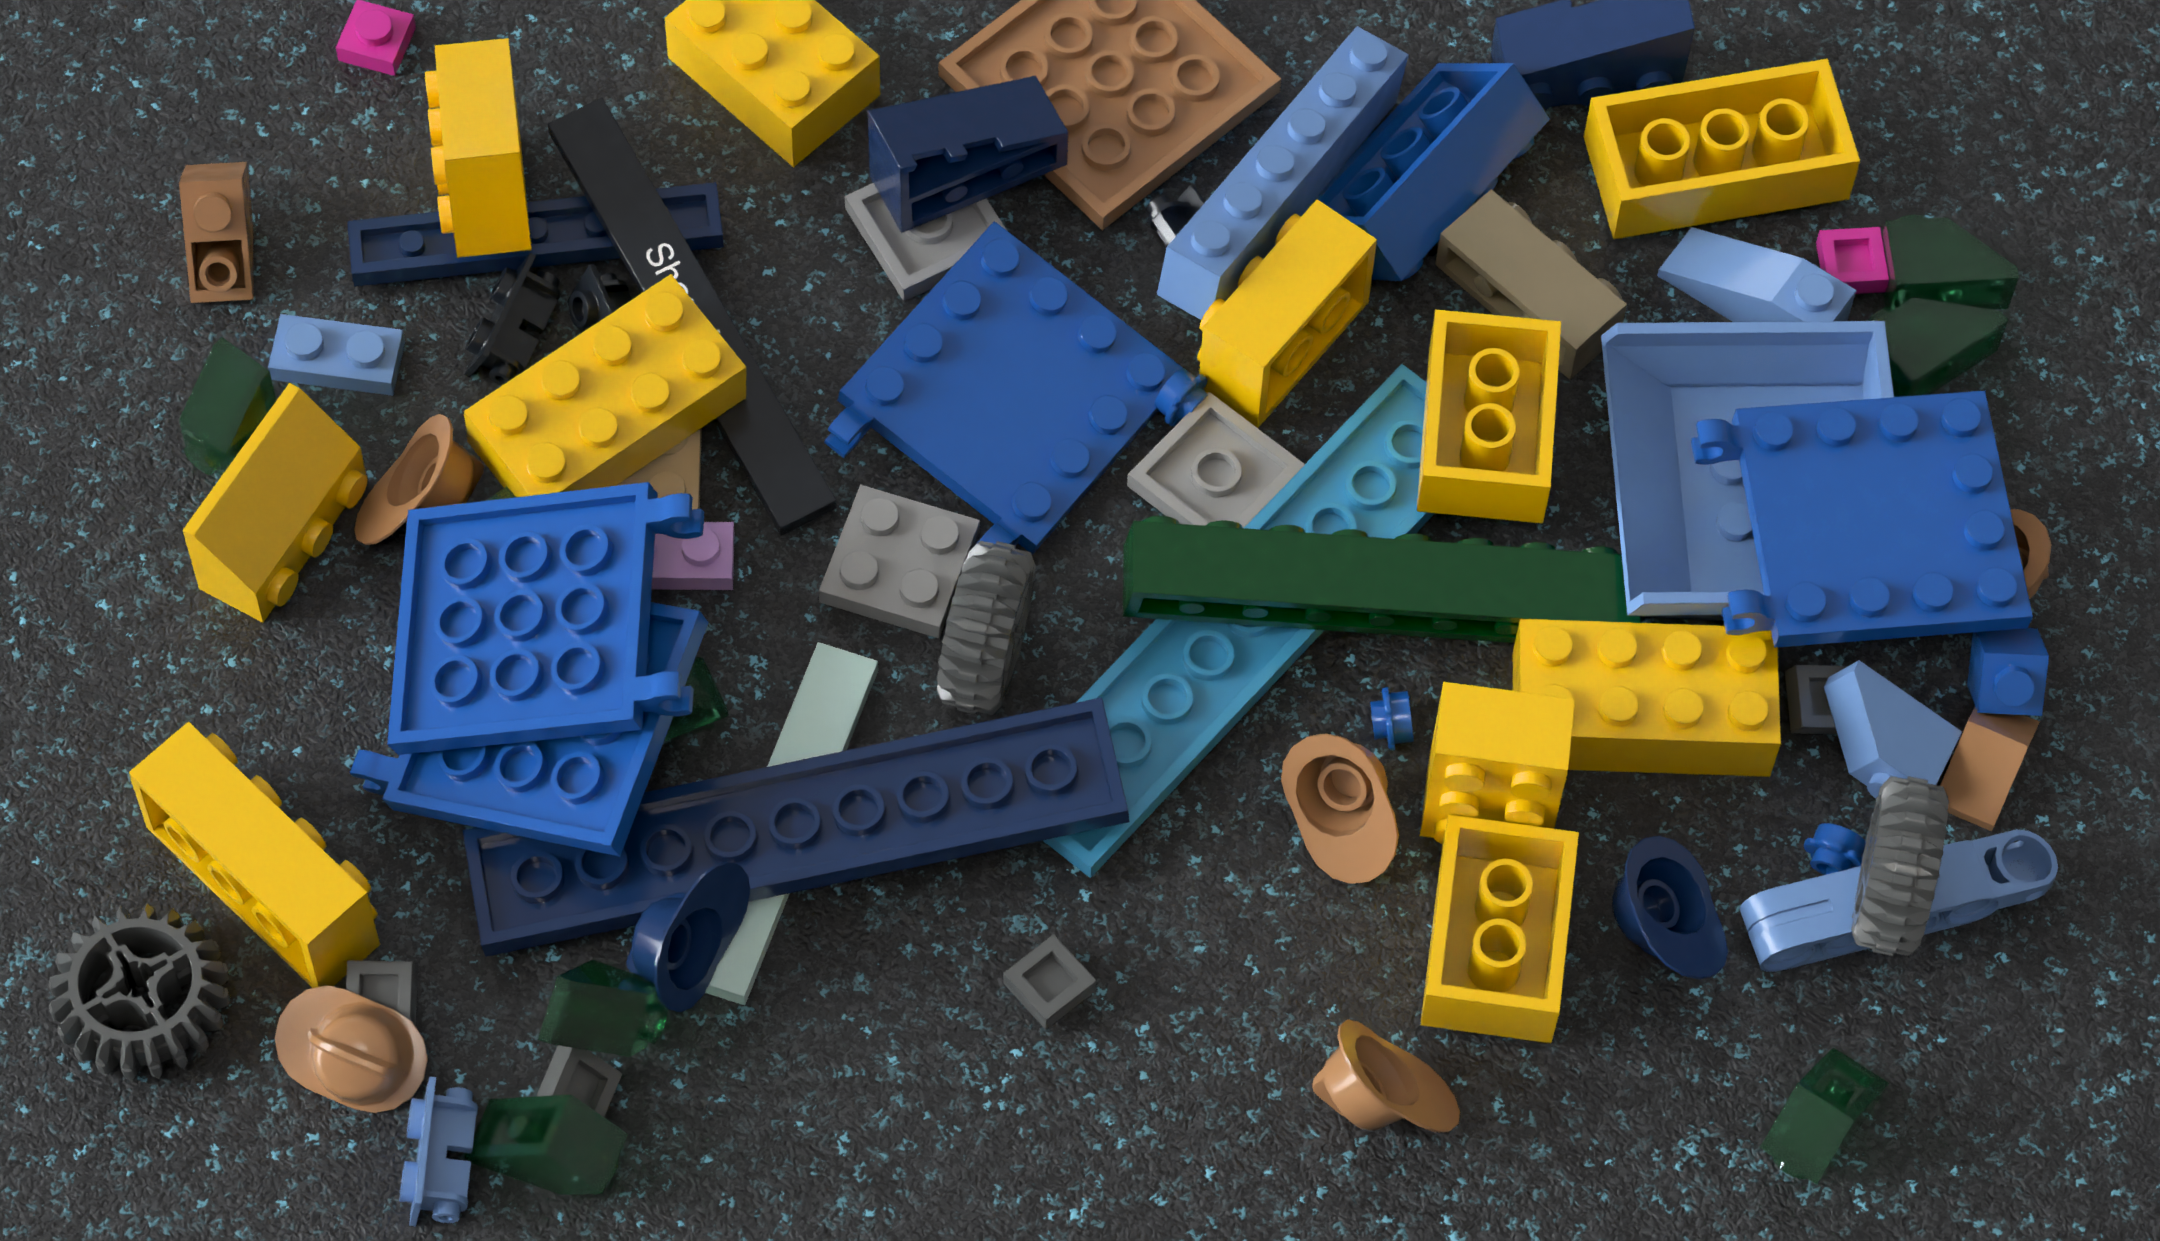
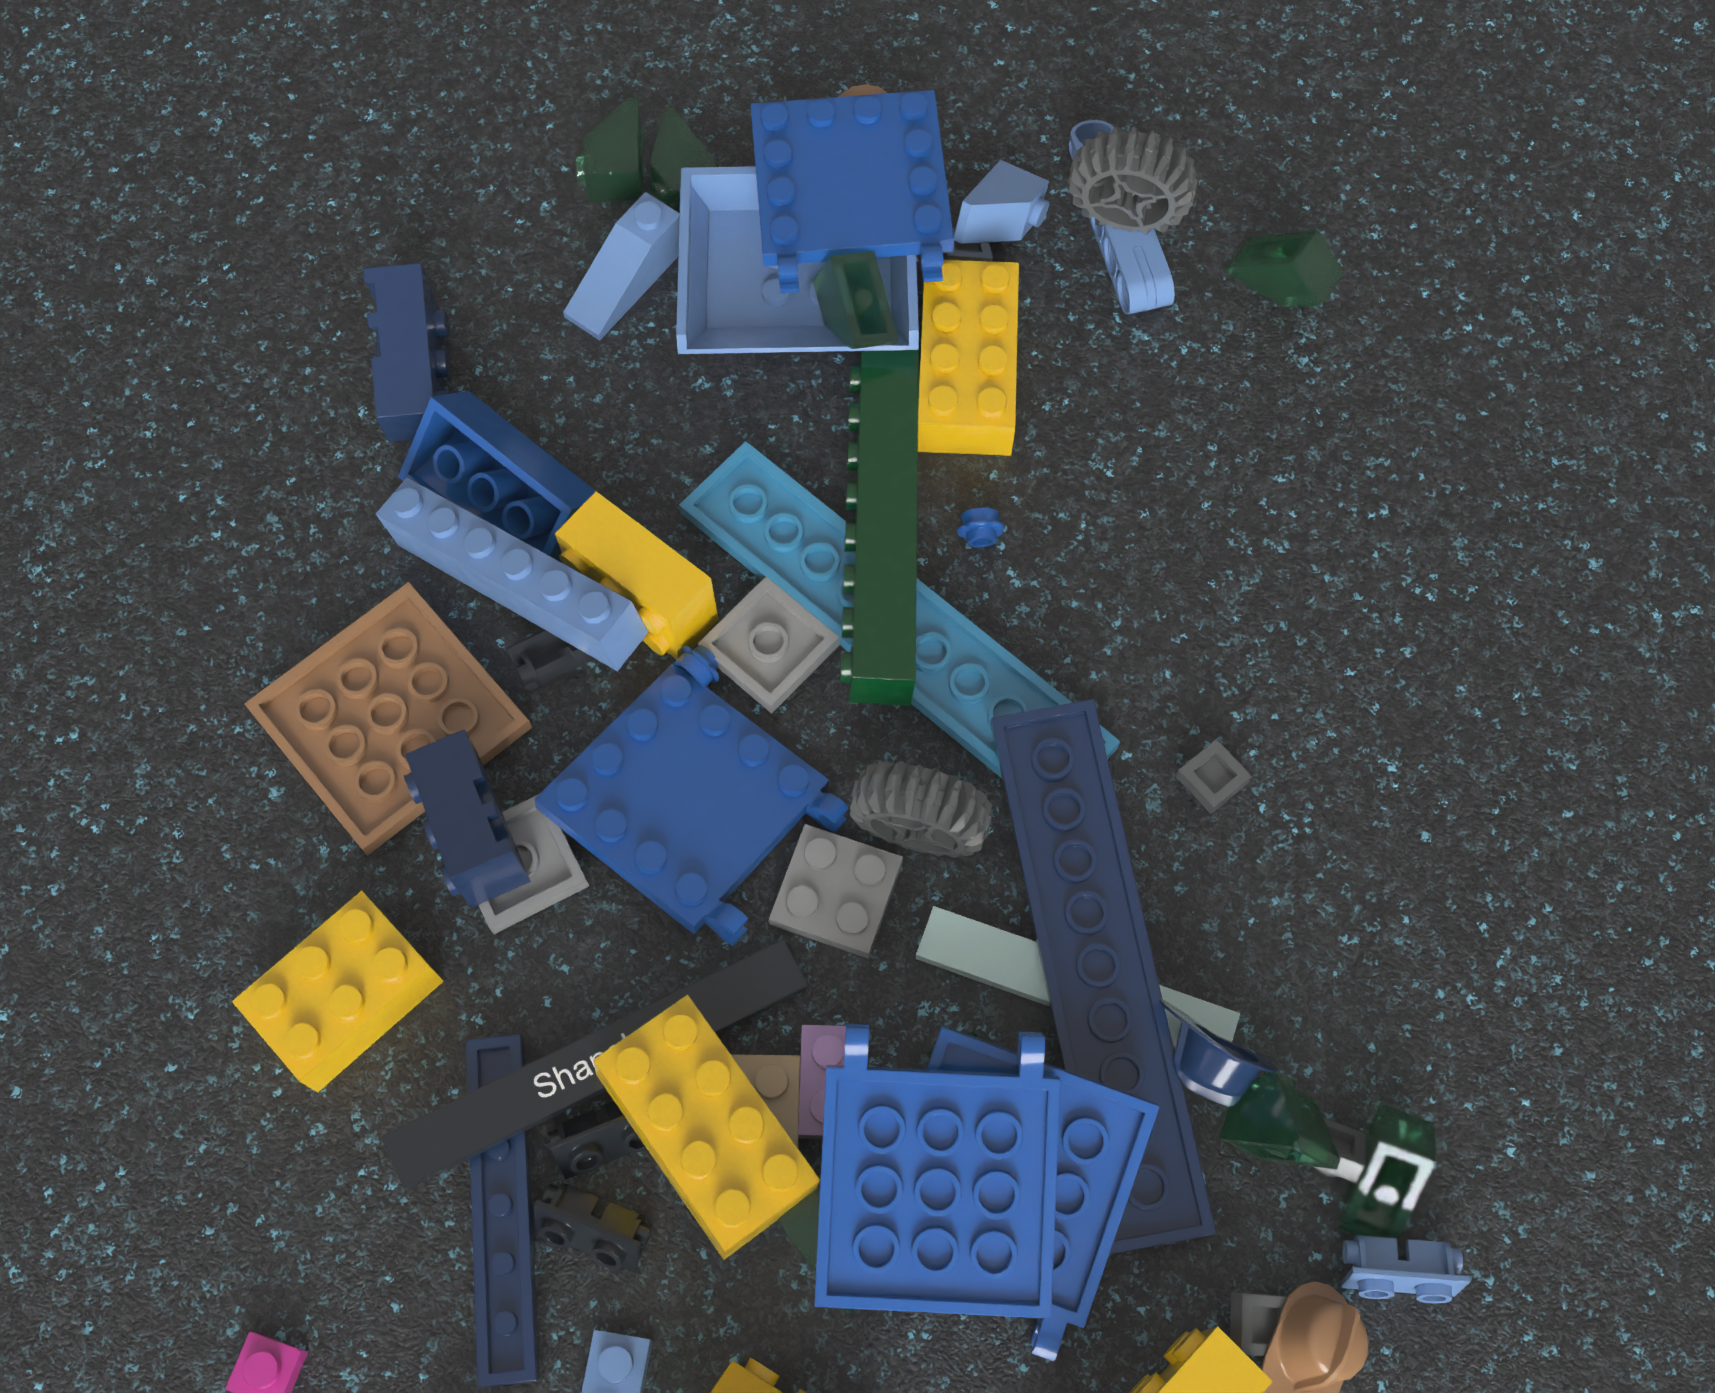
camera: 85 degrees left, 5 degrees up
(426, 475) = (762, 1310): medium nougat piece -> none
(477, 148) = (427, 1250): yellow brick -> none
(1341, 806) = (1063, 558): medium nougat piece -> none
(1381, 1084) = (1290, 539): medium nougat piece -> none
(1489, 416) = (746, 431): yellow brick -> none
(1497, 757) = (1056, 436): yellow brick -> none
(1500, 929) = (1164, 455): yellow brick -> none
(1527, 275) = (612, 413): dark tan brick -> none
(1669, 908) = (1142, 351): dark blue piece -> none
(1684, 536) = (855, 301): none -> slope
(1721, 148) = (507, 278): yellow brick -> none
(1834, 849) = (1081, 252): blue plate -> none
(1854, 257) = (602, 207): dark pink plate -> none
(1986, 765) = (1005, 142): medium nougat slope -> none
(2008, 672) = (960, 130): blue brick -> none

